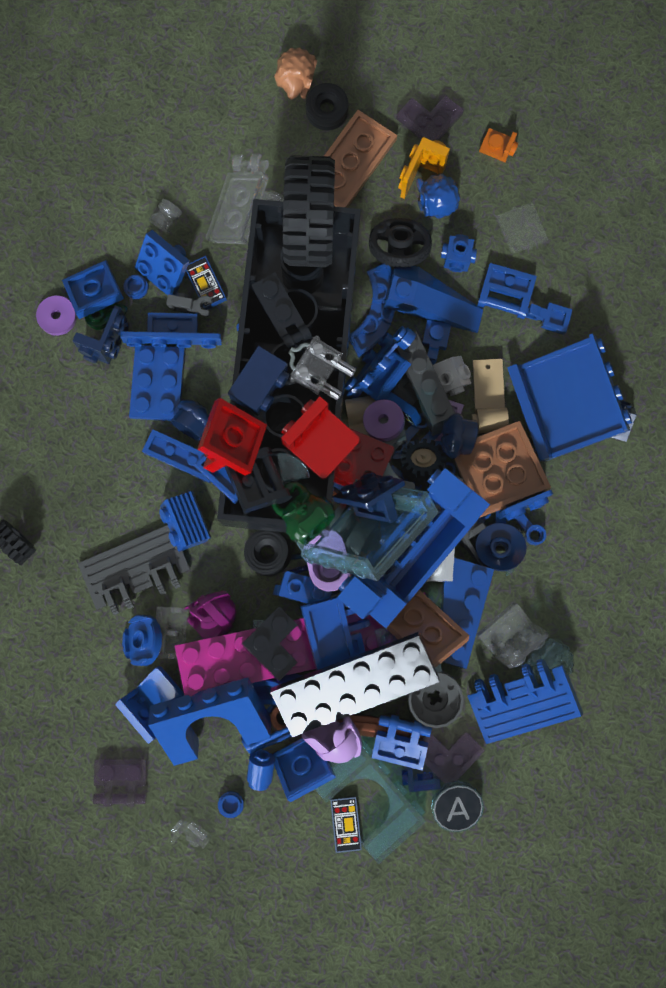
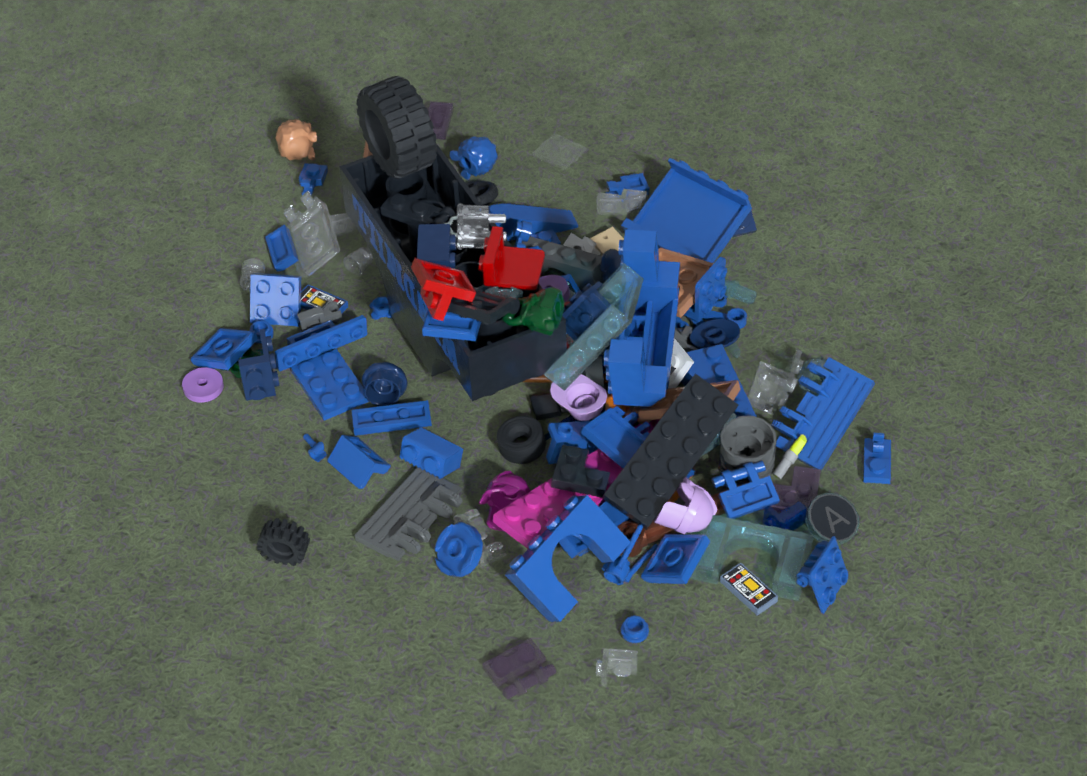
camera: 30 degrees left, 35 degrees down
(104, 452) = (316, 450): none -> blue hand
(128, 484) = (356, 460): none -> blue panel
(152, 690) = (498, 590): blue bracket -> none
(209, 197) = (281, 248): none -> blue tile
(260, 770) = (640, 583): blue brick -> none
(288, 122) = (312, 176): none -> blue plate
(327, 93) = (337, 142): black tyre -> none
(398, 874) = (824, 572): none -> blue hinge
(429, 155) = (450, 132): light orange bracket -> none
(458, 253) = (521, 182): blue brick -> none
(471, 719) = (790, 457): none -> light grey piece
(499, 145) = (499, 113): orange bracket -> none
(510, 283) = (578, 183): blue plate -> none
(539, 337) = (628, 203): none -> clear slope
(541, 765) = (877, 459): none -> blue plate
(557, 503) = (739, 292): none -> clear light blue axle

